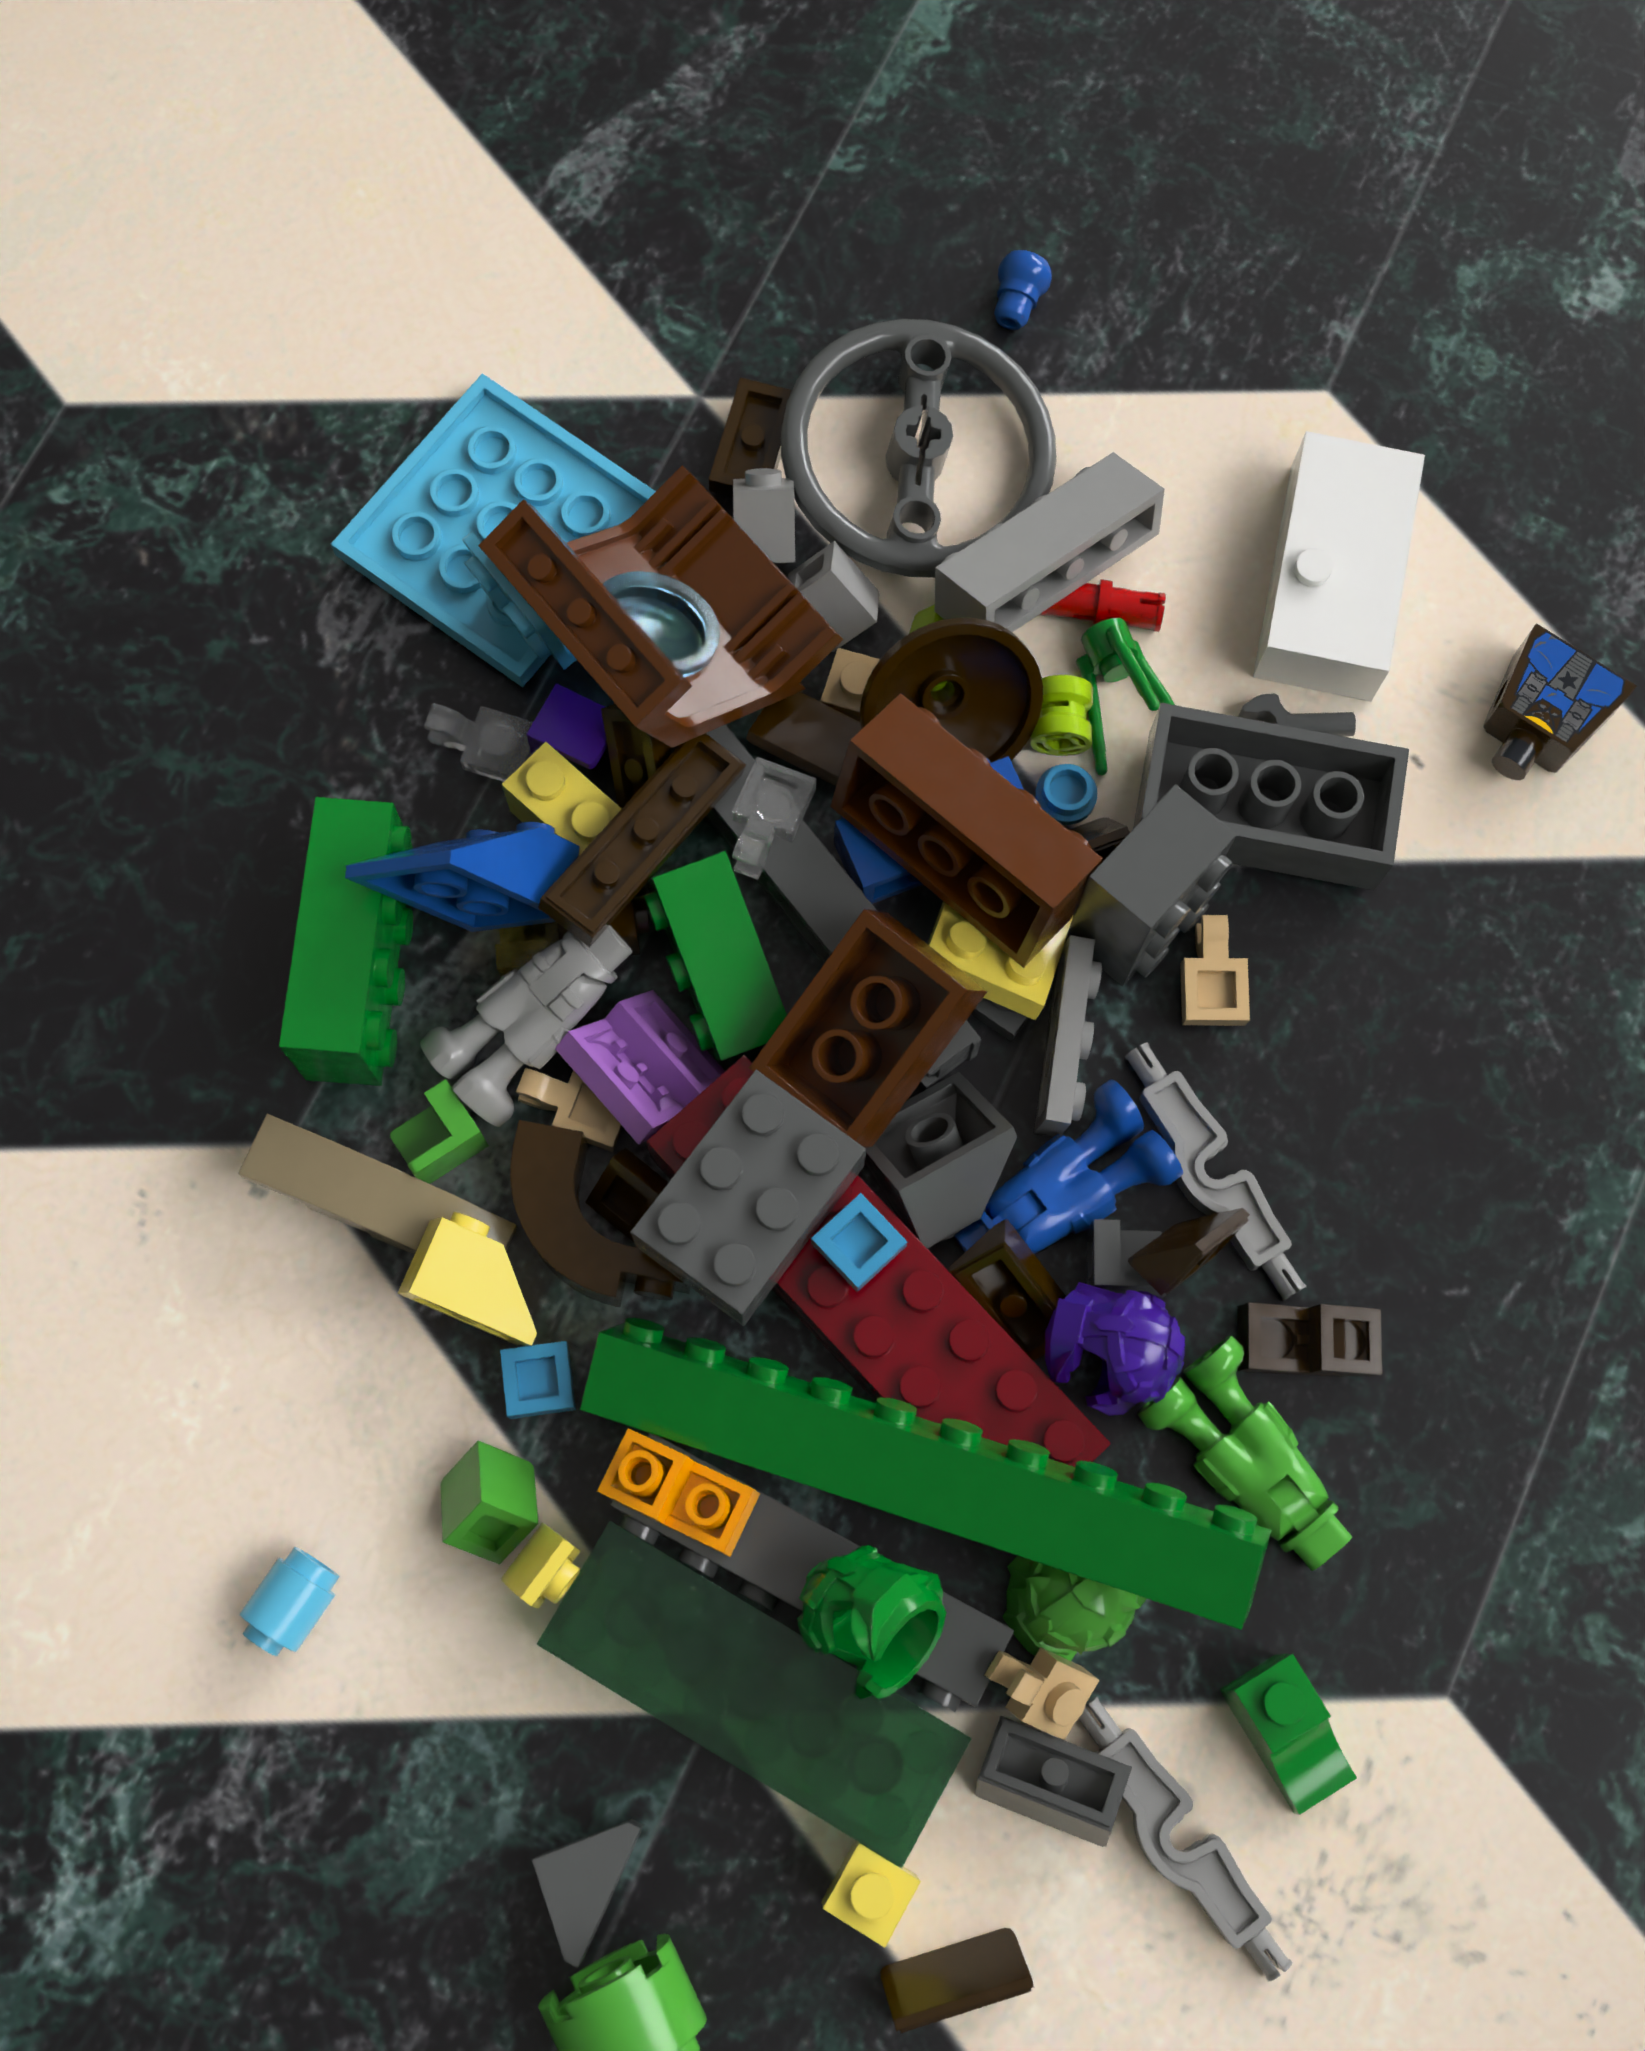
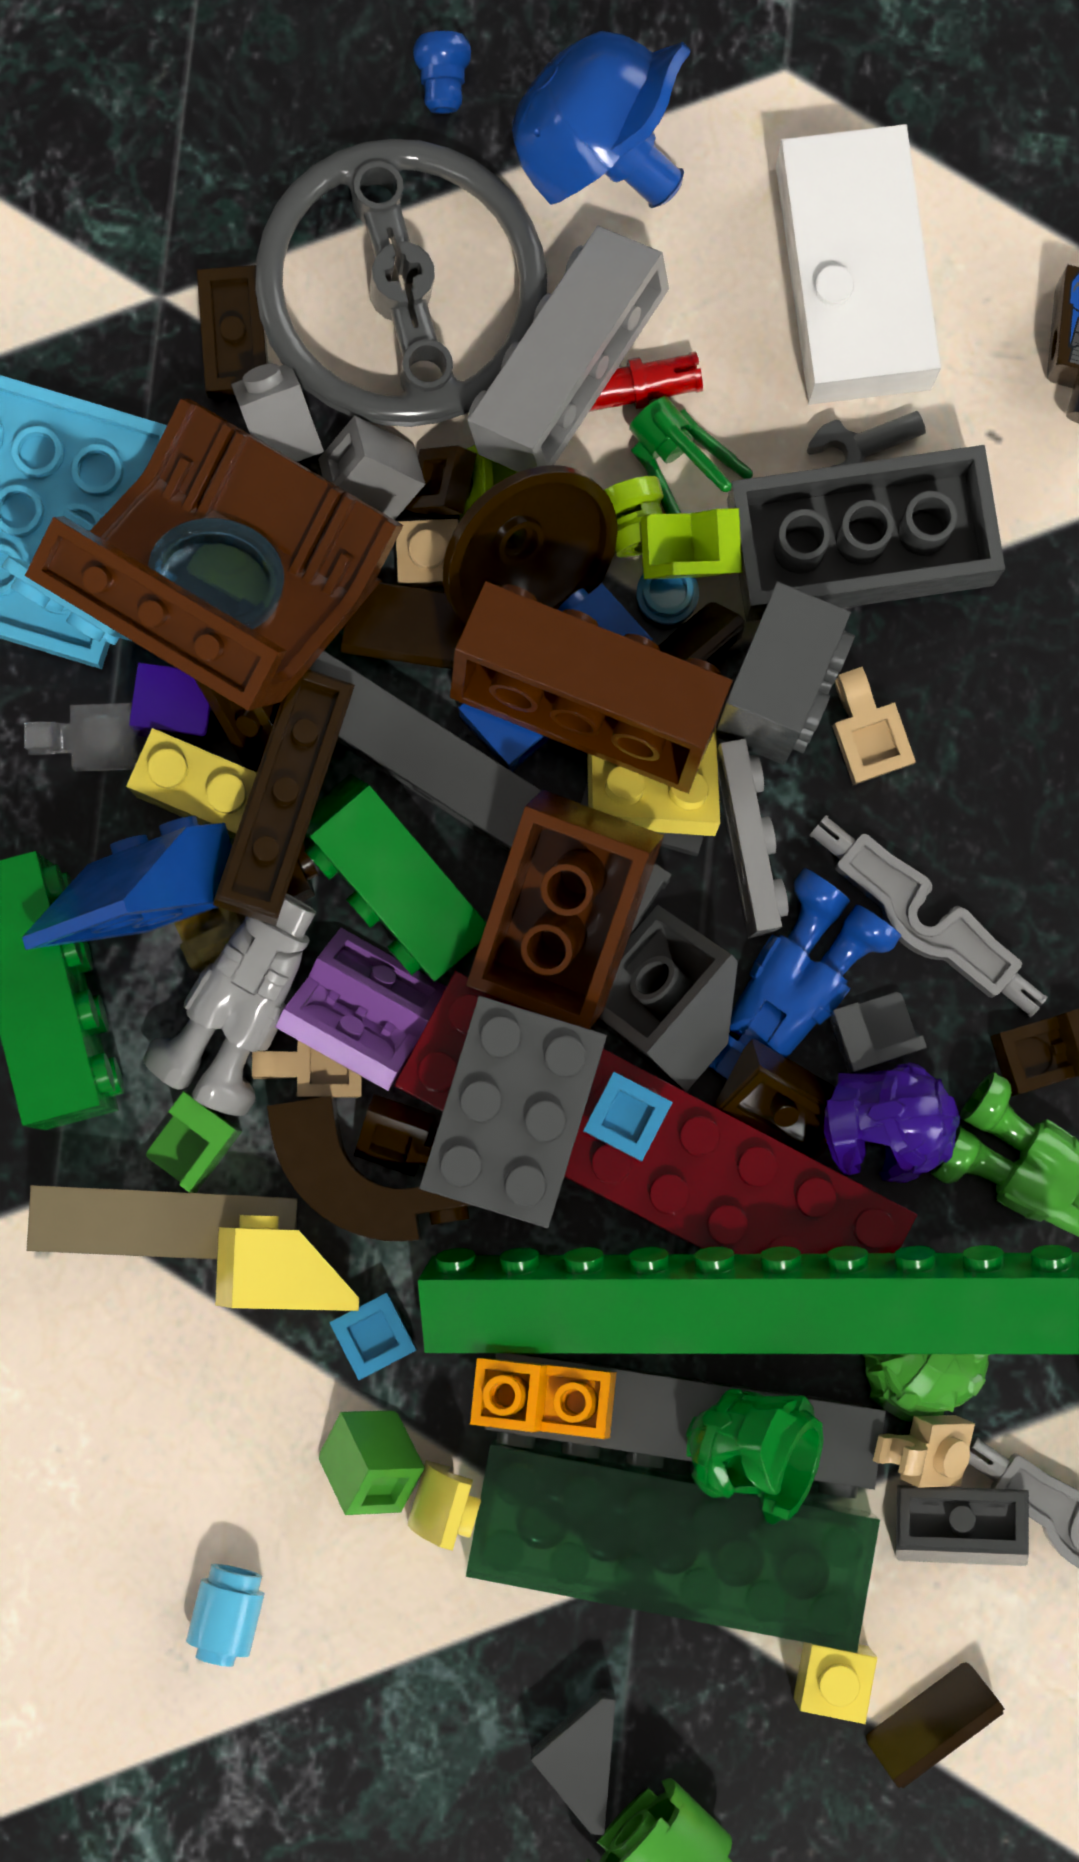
camera: 15 degrees left, 10 degrees up
(769, 806) = (394, 718): clear plate -> none
(896, 618) = (447, 481): none -> dark brown plate
(1103, 751) = (691, 544): none -> lime panel
(1138, 356) = (597, 116): none -> blue piece
(1186, 1248) = (926, 1006): dark brown slope -> none

